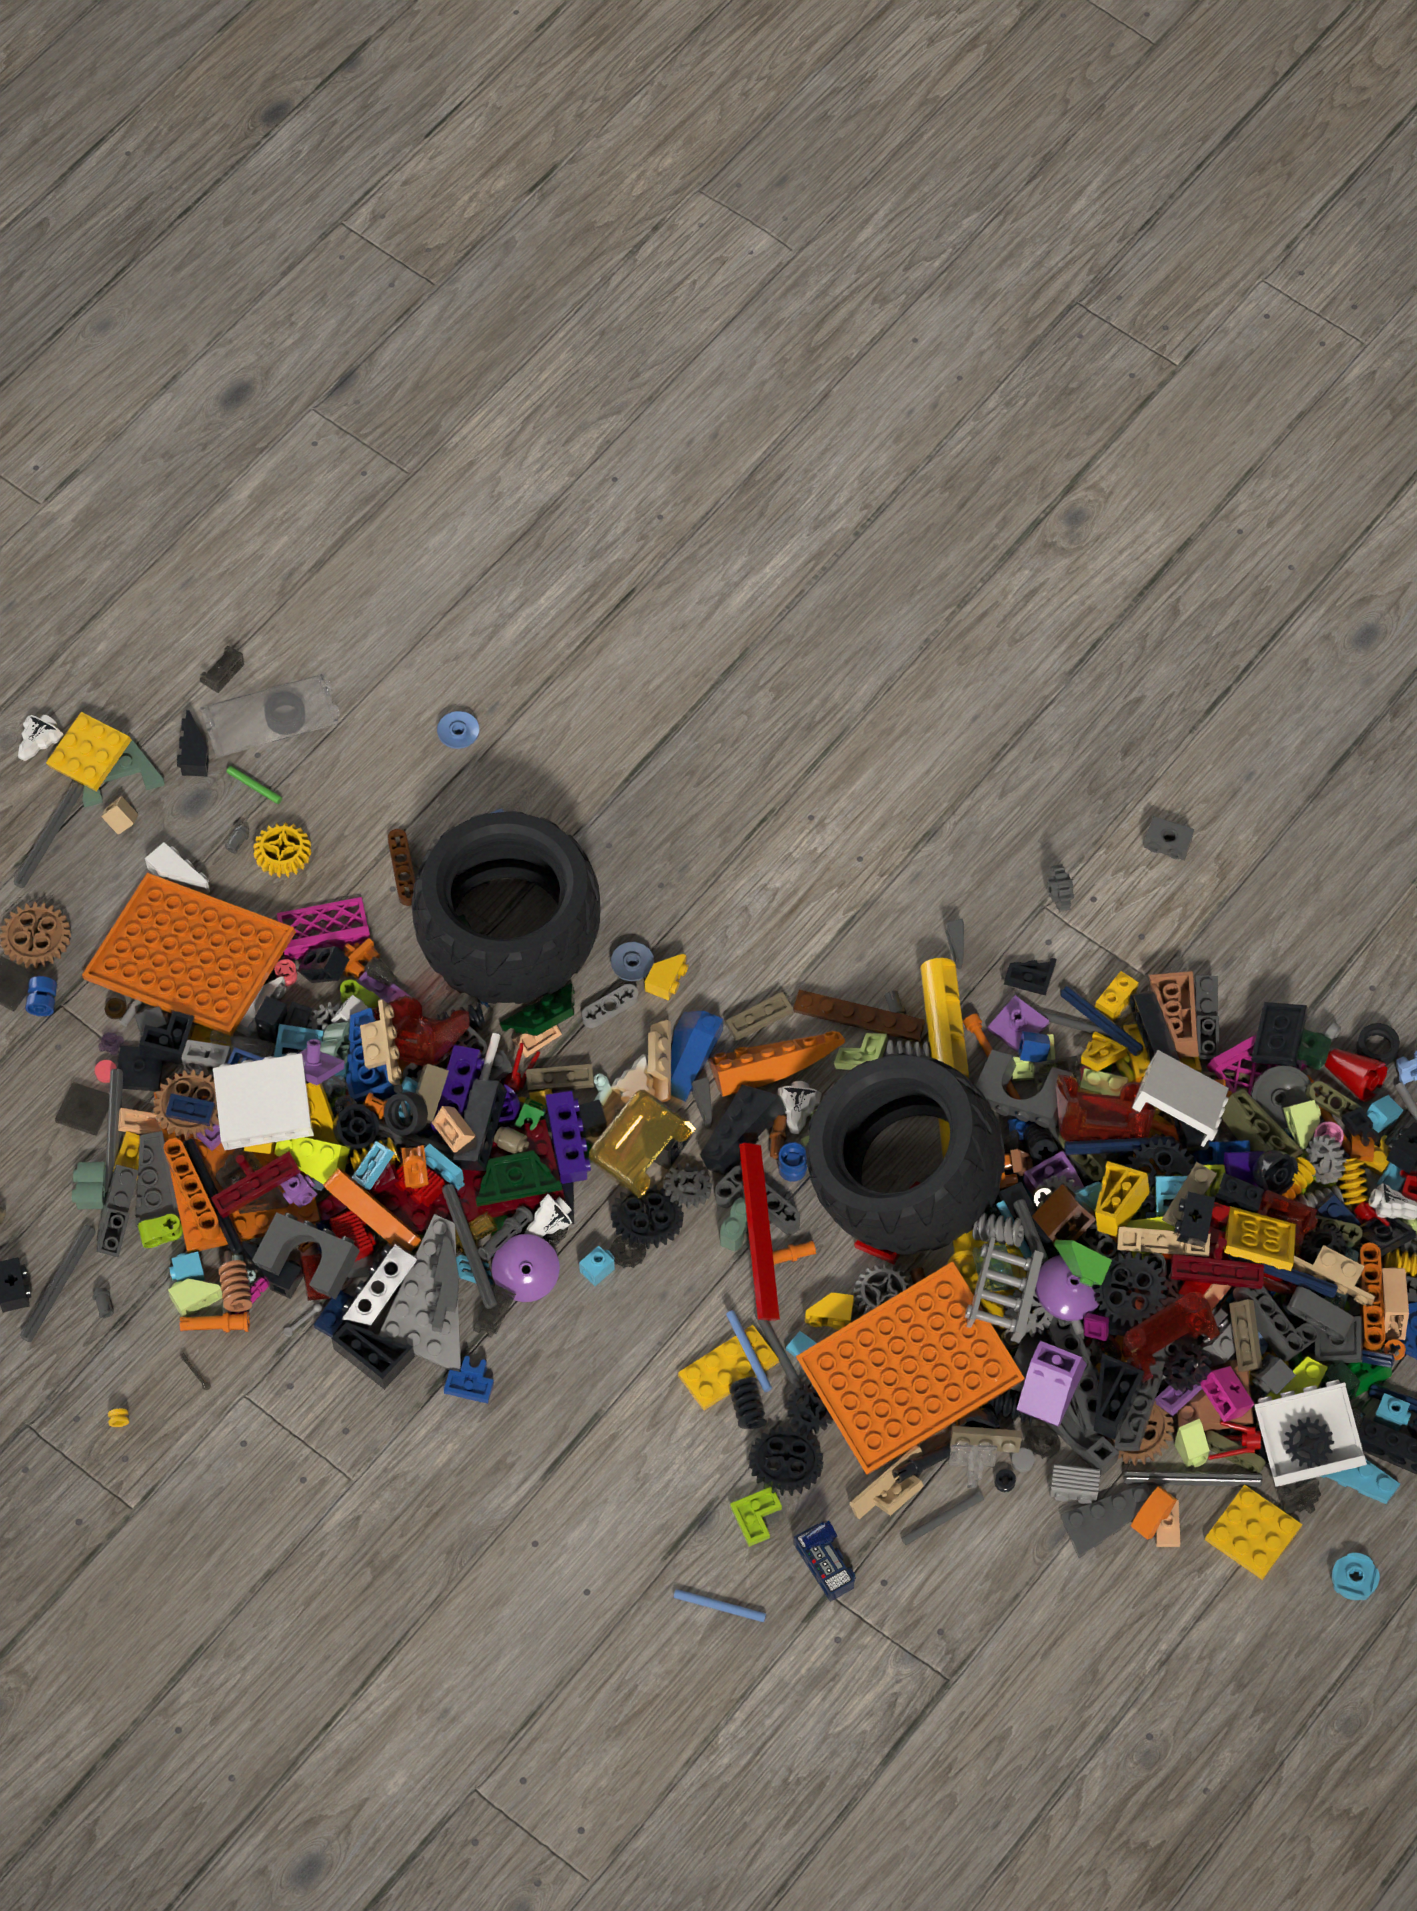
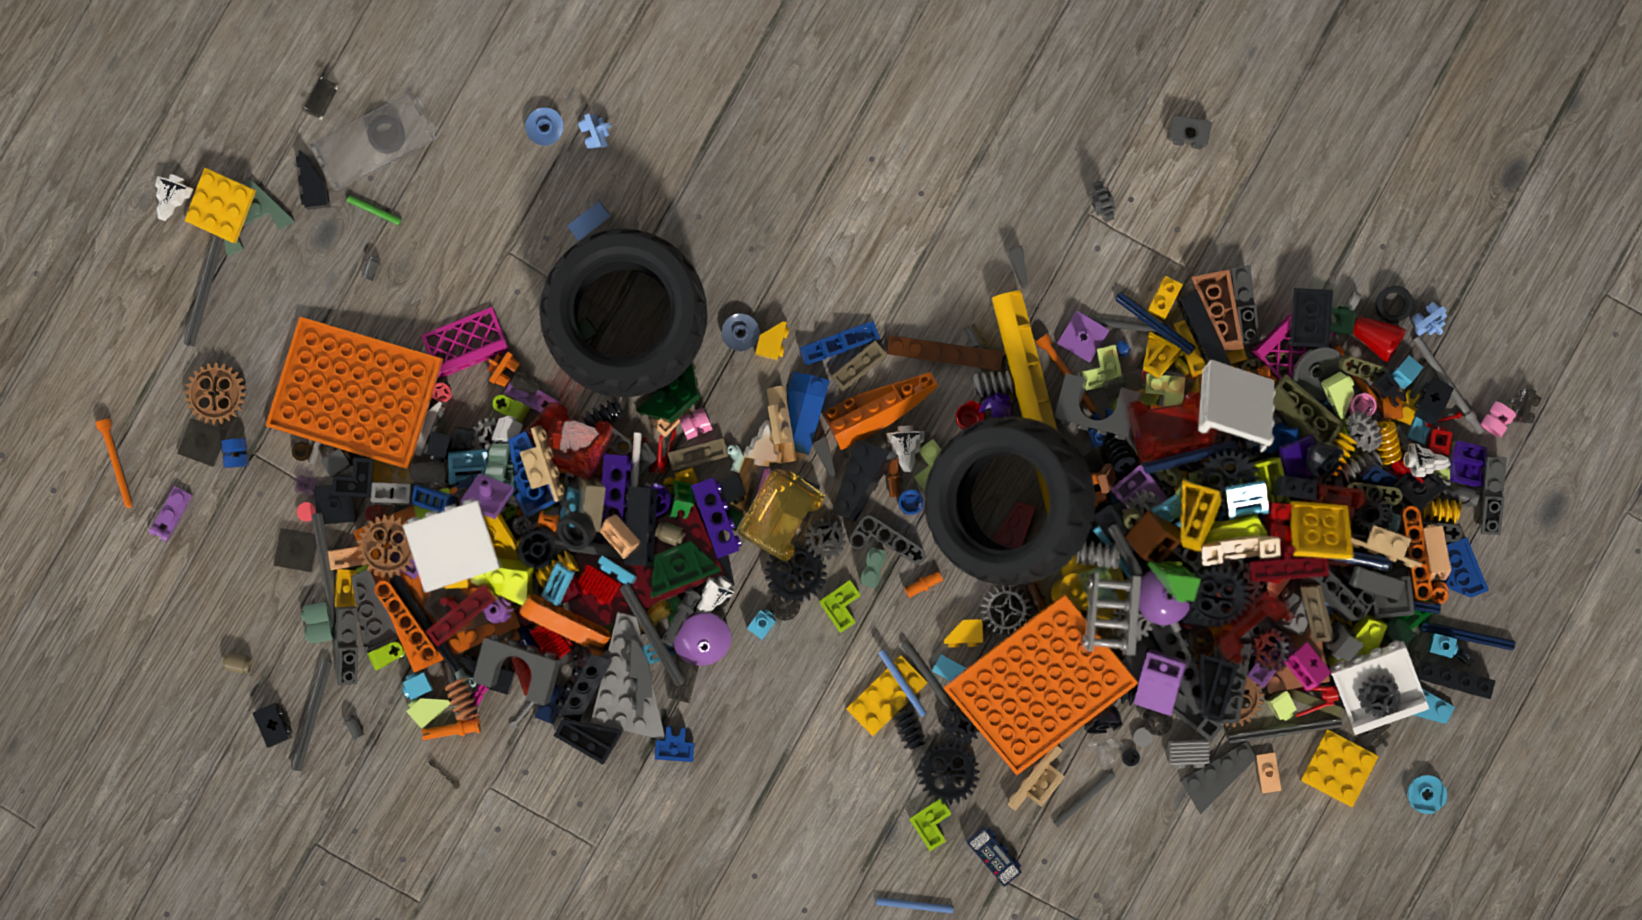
camera: 10 degrees left, 25 degrees up
(118, 1417) = (389, 828): yellow bush -> none
(119, 815) = (262, 262): tan panel -> none
(168, 864) = (319, 308): white slope -> none
(190, 1109) = (390, 558): dark blue plate -> none
(273, 842) = (412, 264): yellow gear -> none
(323, 964) = (473, 384): black brick -> none
(401, 867) = (520, 271): reddish brown beam -> none
(415, 1167) = (594, 581): orange hips -> none
(516, 741) = (598, 131): none -> light blue hips
(563, 1044) = (695, 423): none -> bright pink wheel
(611, 997) = (720, 375): light grey beam -> none
(687, 1260) = (835, 604): none -> lime plate
(741, 991) = (839, 343): none -> blue slope
(759, 1232) = (893, 575): red tile -> none
(820, 1535) = (989, 841): clear blue cone -> none
(871, 1049) = (958, 391): yellowish green plate -> none
(916, 1465) = (1056, 763): black pin -> none
(1005, 1440) = (1111, 731): dark tan plate -> none
(1030, 975) = (1087, 287): black wing -> none
(1034, 1047) = (1101, 361): blue panel -> none
(1062, 1043) = (1123, 348): none -> blue plate
(1096, 1326) = (1191, 626): magenta tile -> none
(1153, 1511) = (1257, 770): orange slope -> none
(1196, 1182) = (1257, 505): dark tan plate -> none
(1201, 1207) = (1269, 542): black brick -> none

